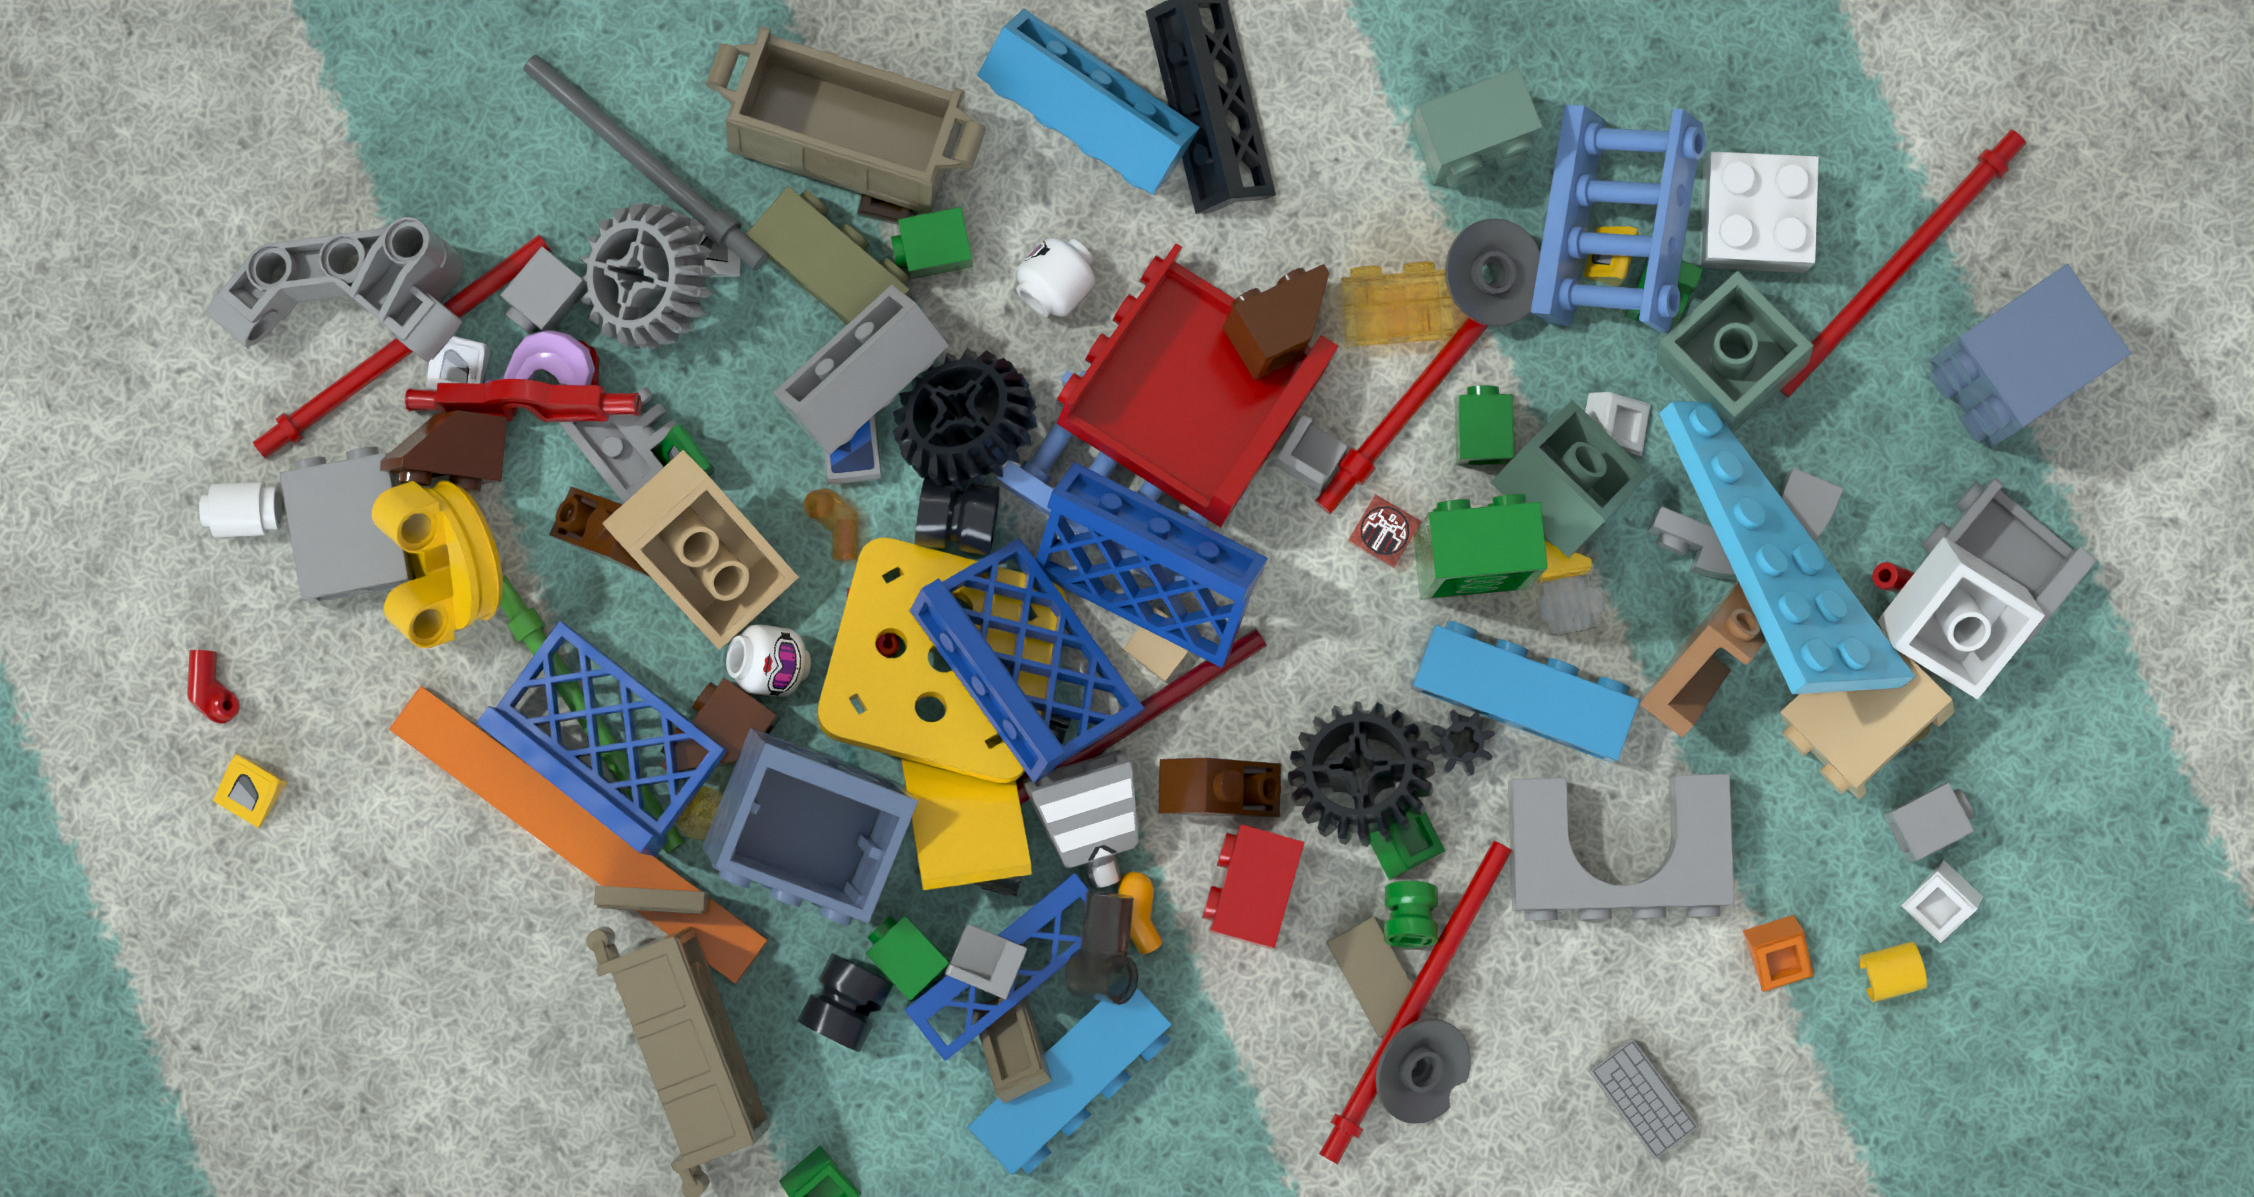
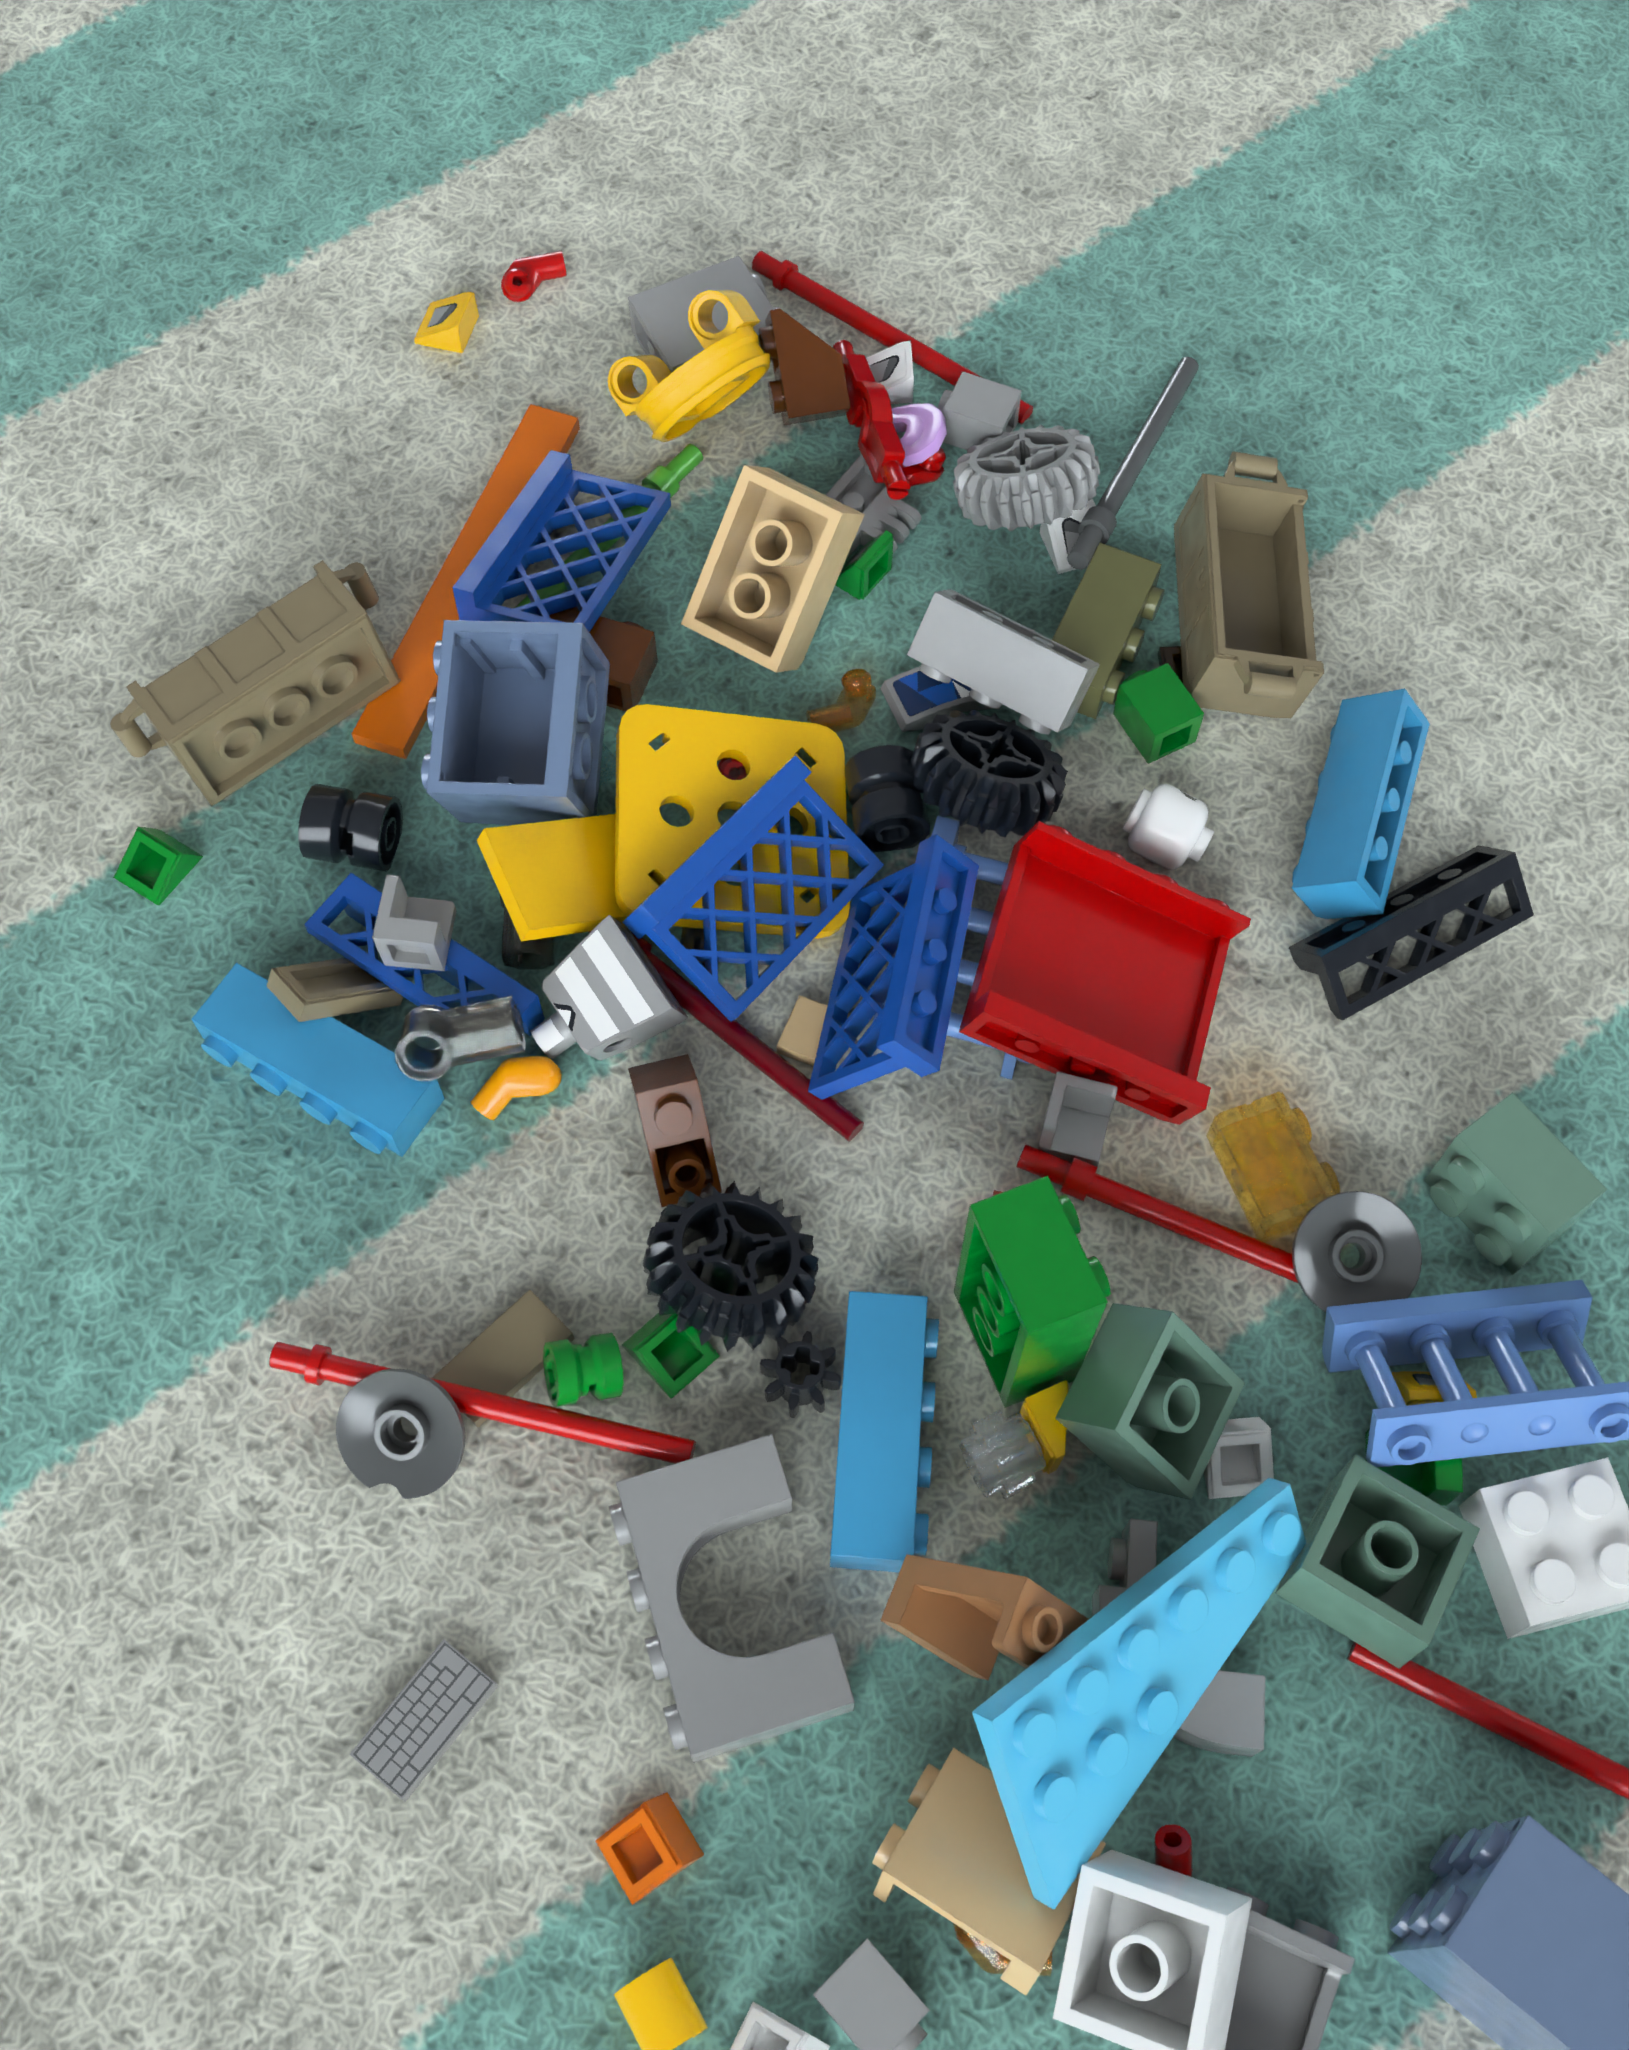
camera: 75 degrees right, 20 degrees down
(241, 509) = (695, 244): white brick -> none
(398, 279) = (951, 284): light grey connector -> none
(651, 900) = (414, 630): dark tan tile -> none
(768, 660) = (684, 672): white head -> none
(906, 955) = (420, 859): green brick -> none
(1254, 886) = (566, 1178): red brick -> none
(1276, 324) = (1211, 1042): reddish brown slope -> none
(1484, 427) = (1179, 1286): green brick -> none

